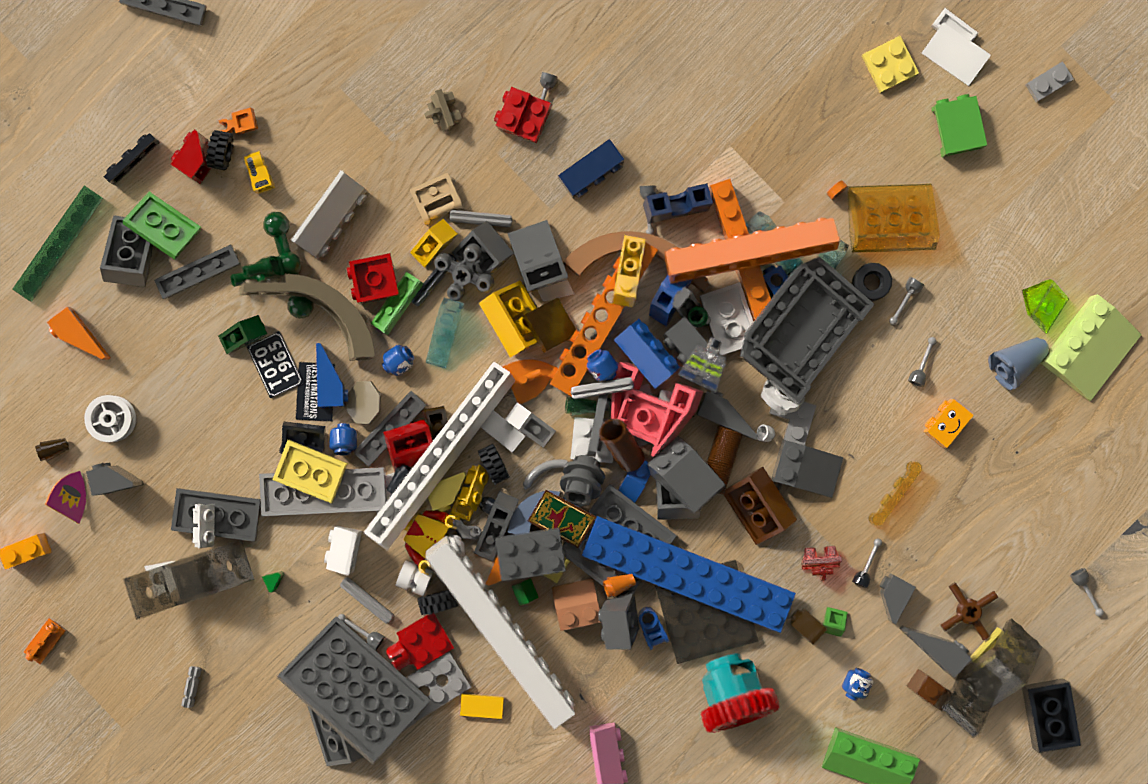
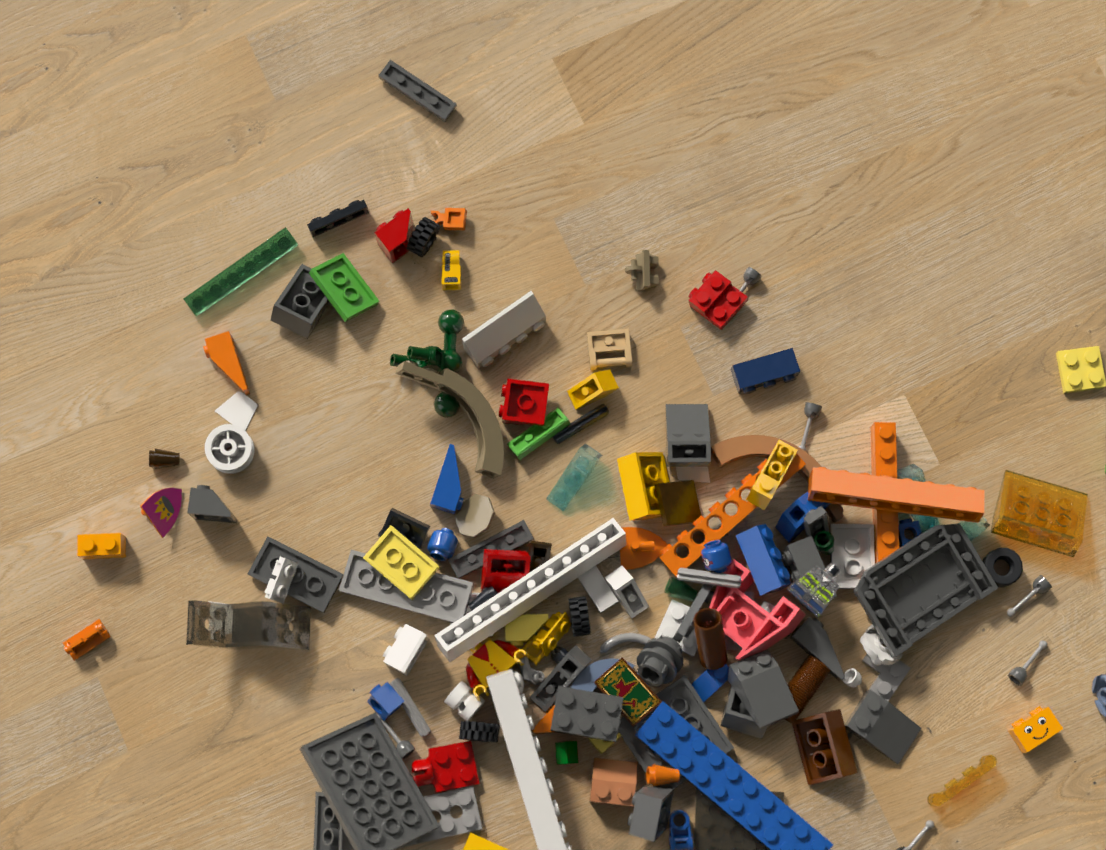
camera: 15 degrees right, 10 degrees down
(105, 377) = (238, 410): none -> white sticker
(191, 687) = (210, 733): light grey axle -> none
(197, 271) = (361, 341): dark grey plate -> none
(242, 334) = (382, 413): dark green slope -> none
(273, 580) = (327, 656): green slope -> none
(274, 364) = (402, 452): black sticker -> none
(307, 395) = (423, 491): black sticker -> none
(340, 602) = (385, 700): none -> brick
(398, 360) = (521, 487): blue head -> none
(458, 269) = (617, 419): dark grey gear -> none
(480, 218) = (645, 382): light grey axle -> none
(494, 249) = (636, 413): dark grey slope -> none
(665, 207) = (852, 432): dark blue arch -> none
(829, 561) = (868, 826): clear red hips -> none
(836, 190) = (994, 468): orange tile -> none

